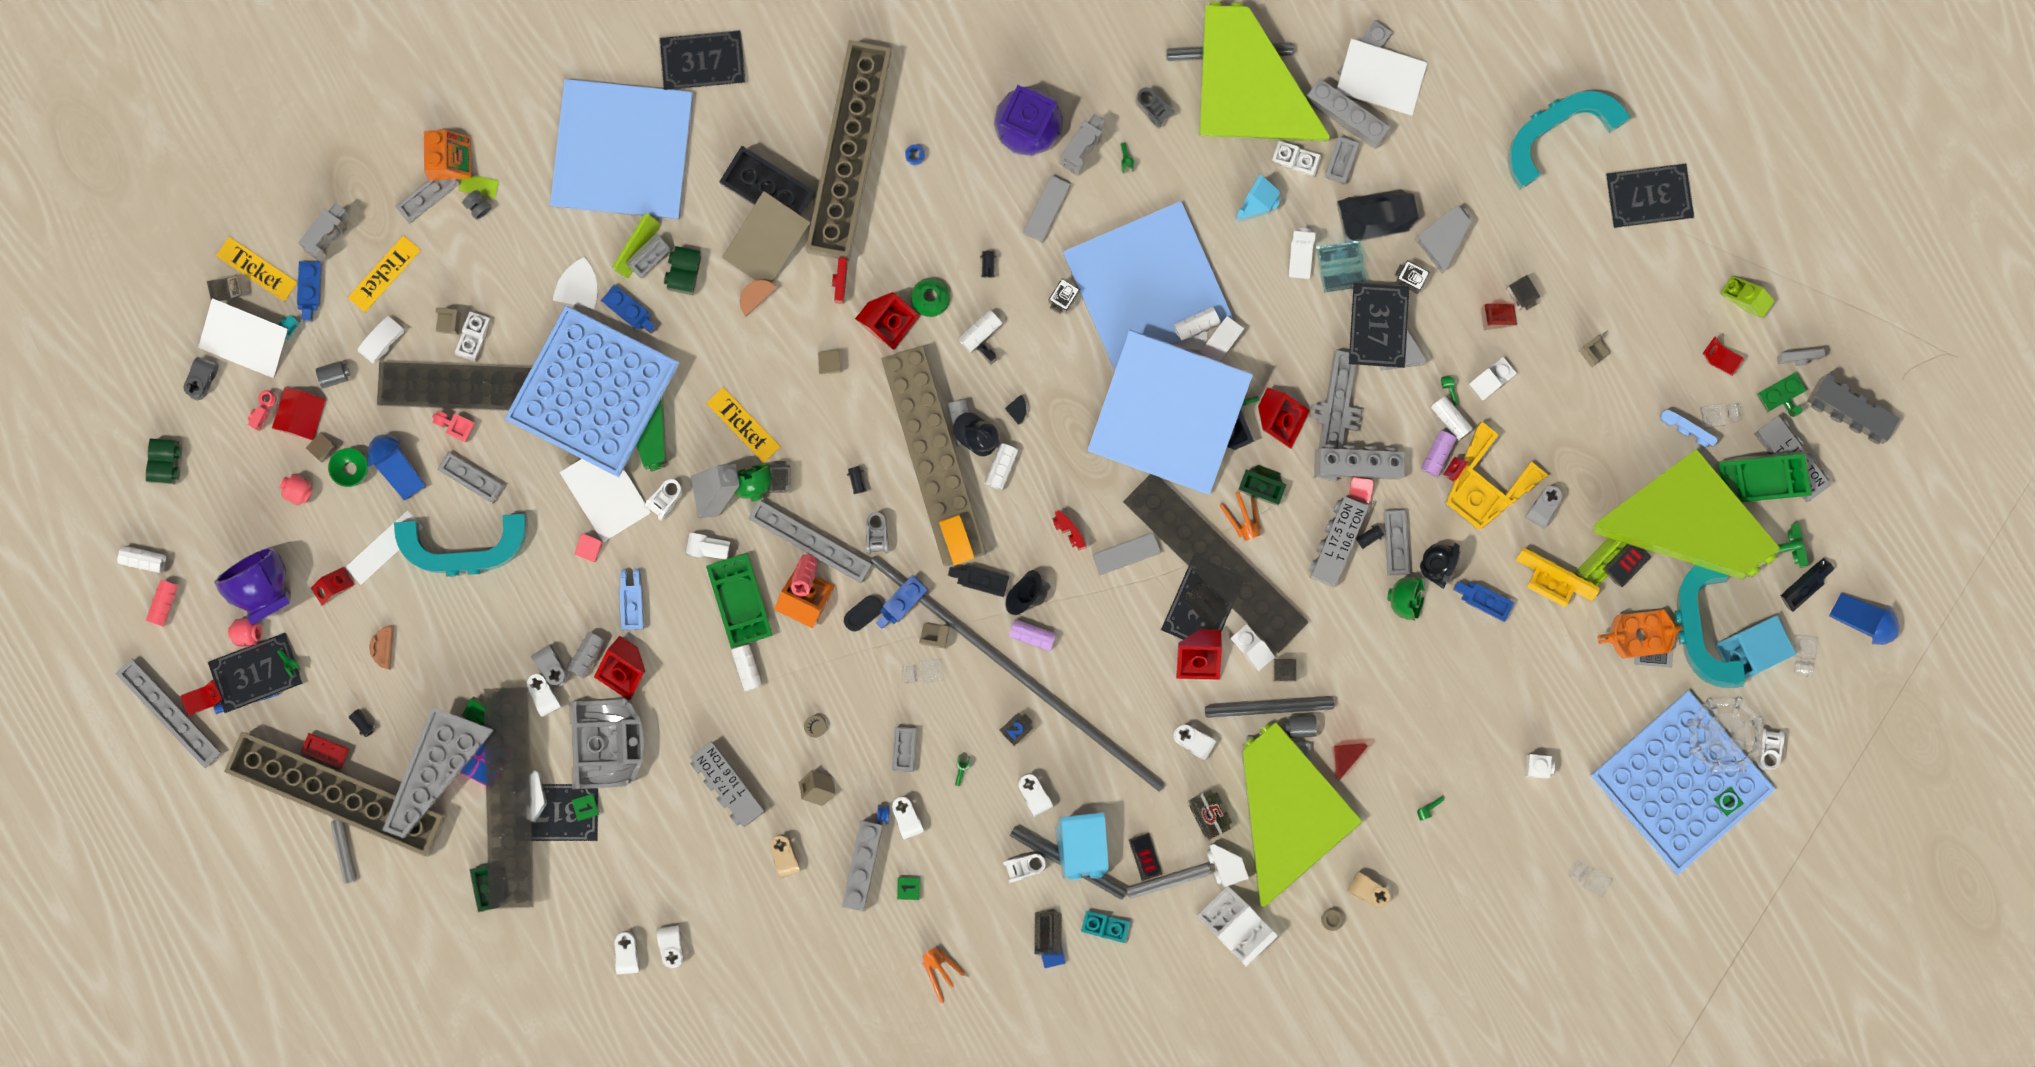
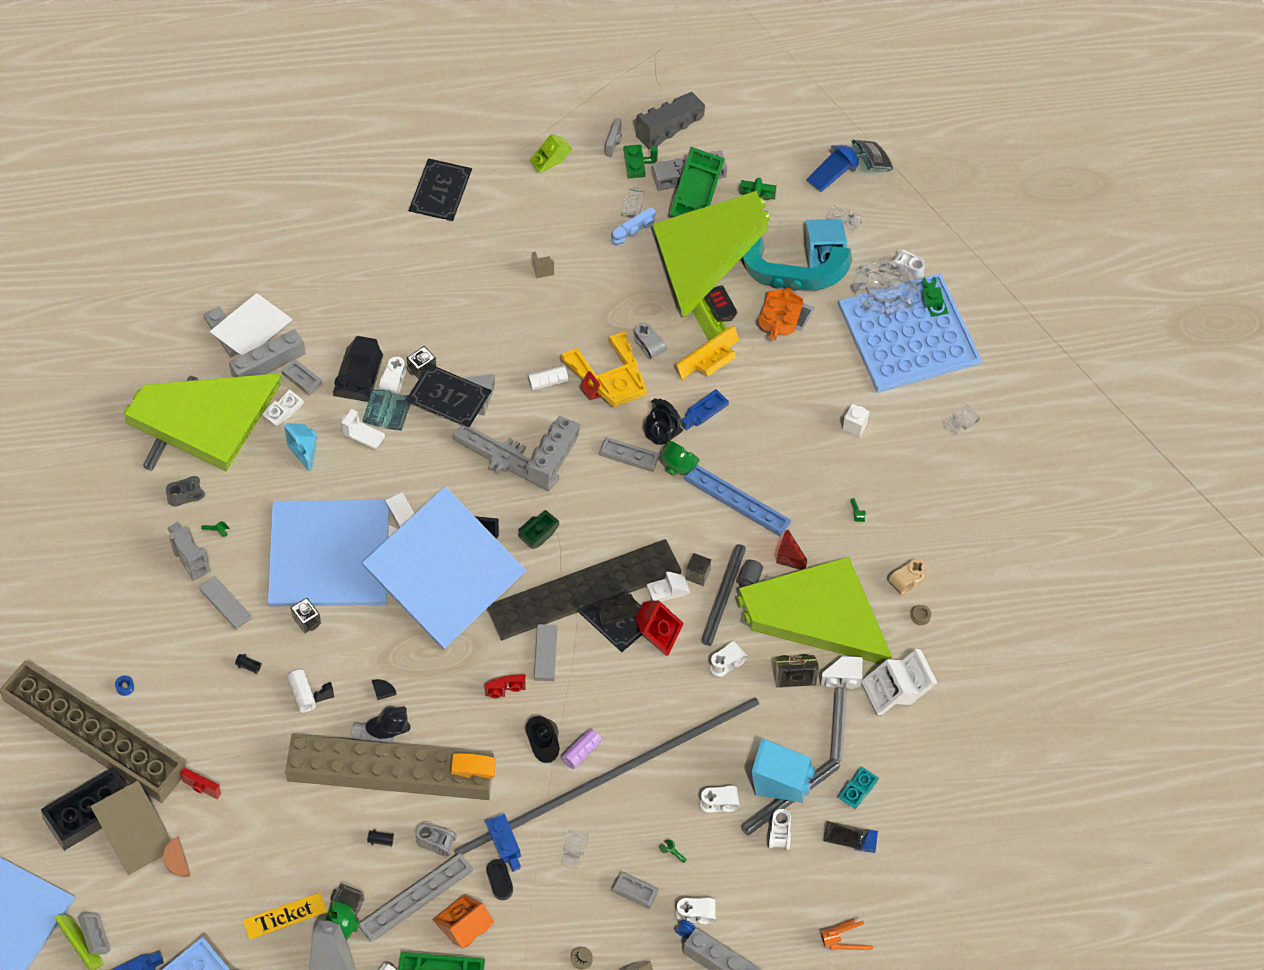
camera: 70 degrees left, 25 degrees down
(683, 270) = (123, 909): dark green brick -> none
(804, 575) = (444, 908): coral axle -> none
(829, 362) = (266, 820): dark tan slope -> none
(887, 318) = (253, 758): red slope -> none
(908, 888) = (760, 935): green tile -> none
(932, 308) = (256, 727): green piece -> none
(934, 635) = (547, 827): dark tan panel -> none
(980, 579) = (514, 772): black hinge -> none
(1001, 466) = (425, 718): white axle -> none
(1017, 728) = (657, 791): clear smoke brick -> none
(1028, 121) = (144, 581): dark purple plate -> none
(1145, 857) = (810, 736): slope -> none
(1196, 324) = (380, 523): white axle -> none
(1249, 528) = (569, 552): orange plant -> none
(1281, 416) = (485, 492): red slope -> none
(1339, 541) = (610, 492): light grey brick -> none
(1361, 489) = (574, 462): coral slope -> none
(1370, 536) = (616, 469): black pin -> none
(1379, 255) = (393, 375): none -> white piece
(1389, 679) = (738, 500): none -> medium blue tile
(1438, 453) = (572, 397): lavender axle -> none
(1444, 237) = (402, 330): light grey slope -> none
(1448, 382) = (518, 370): green hand -> none
(1492, 379) = (530, 341): white slope -> none
(1498, 316) = (482, 319): clear red slope -> none
(1523, 293) = (473, 294): clear smoke brick -> none
(1602, 106) = (363, 257): teal arch -> none
(1722, 357) = (591, 186): red bracket -> none
(1738, 790) = (931, 294): none -> green plate
(1806, 585) = (791, 197): black hinge -> none
(1901, 656) = (873, 155): none -> slope

